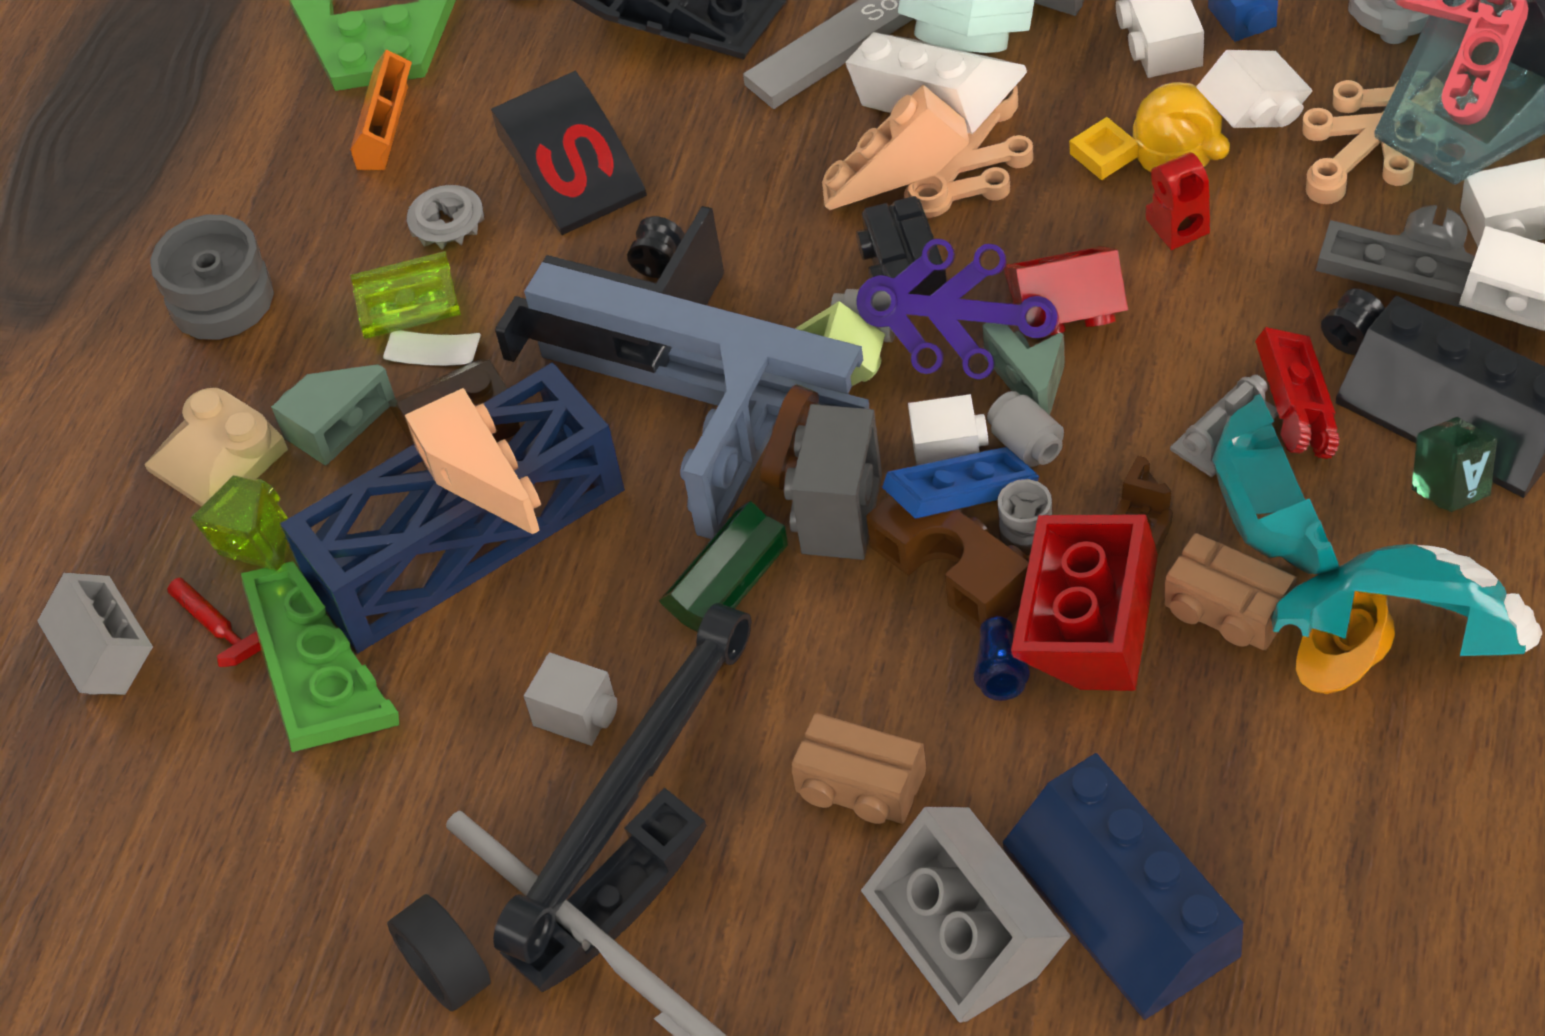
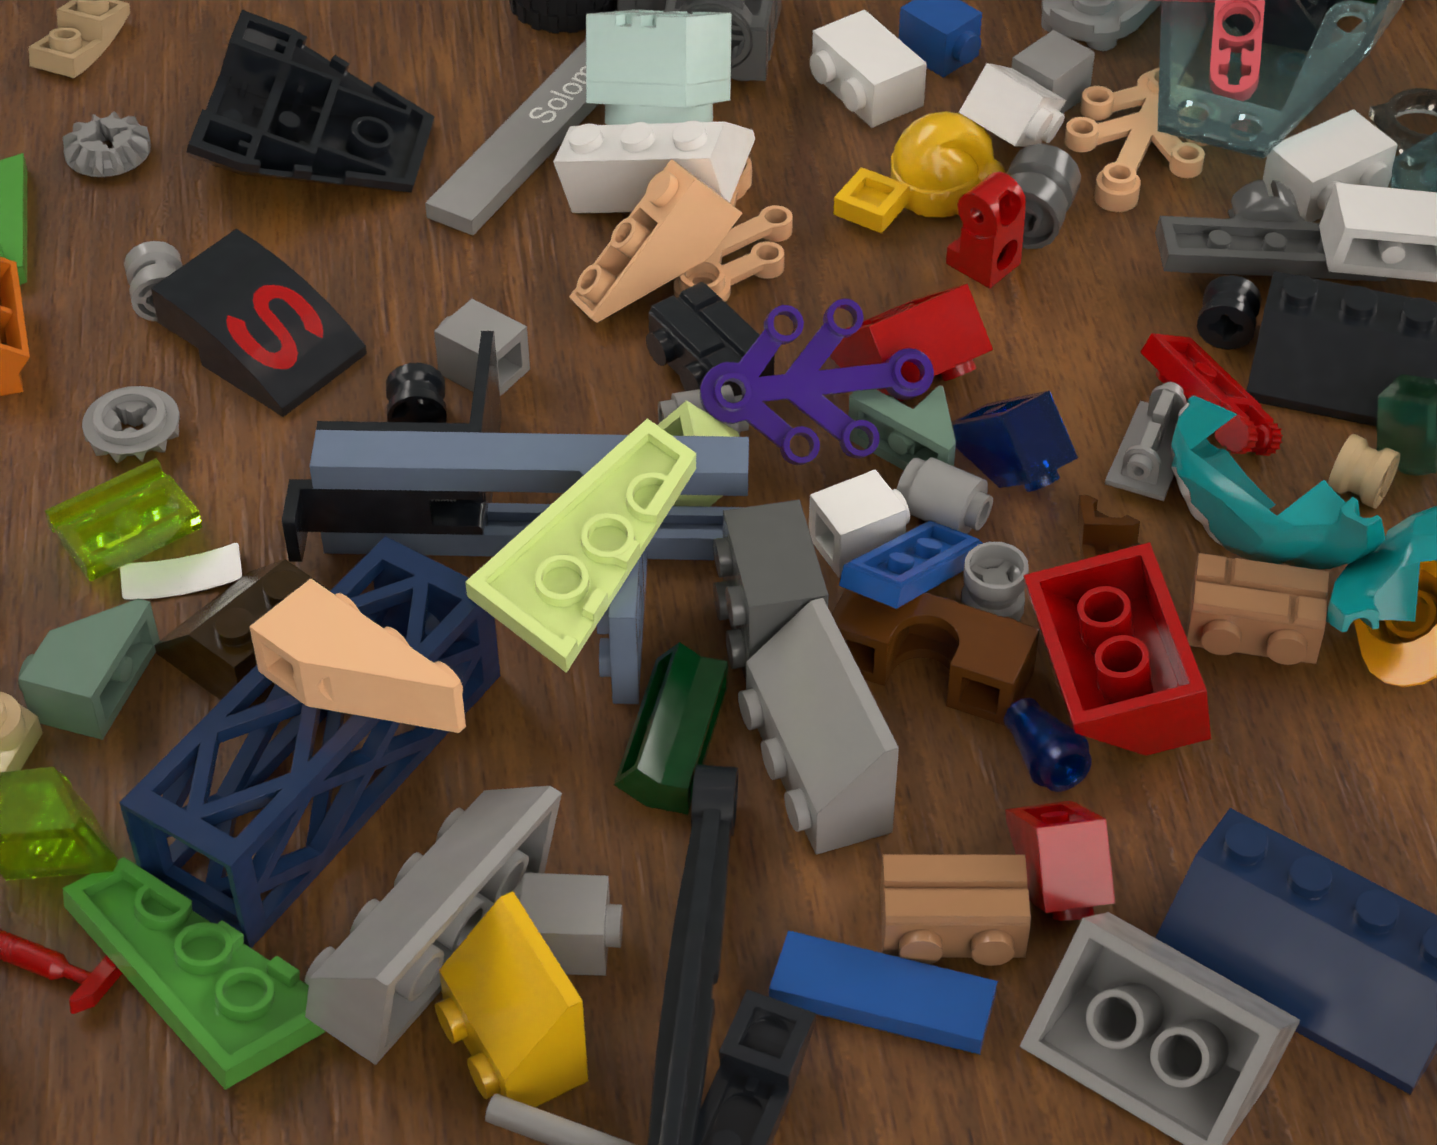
camera: 30 degrees left, 5 degrees down
(472, 670) = (392, 958): none -> light grey slope
(497, 756) = (513, 1009): none -> yellow slope
(506, 85) = (145, 268): none -> light grey wheel
(682, 410) = (579, 551): none -> yellowish green wing
(734, 211) = (459, 341): none -> light grey brick
(780, 449) = (689, 591): reddish brown plate -> none
(780, 818) = (884, 992): none -> blue tile
(819, 605) = (821, 732): none -> light grey slope
(959, 753) = (1064, 857): none -> slope
(1107, 396) = (1016, 441): none -> clear blue slope
(1242, 173) = (1049, 185): none -> dark grey wheel
(1321, 58) = (1058, 66): none -> light grey brick
(1390, 494) = (1364, 470): none -> tan wheel

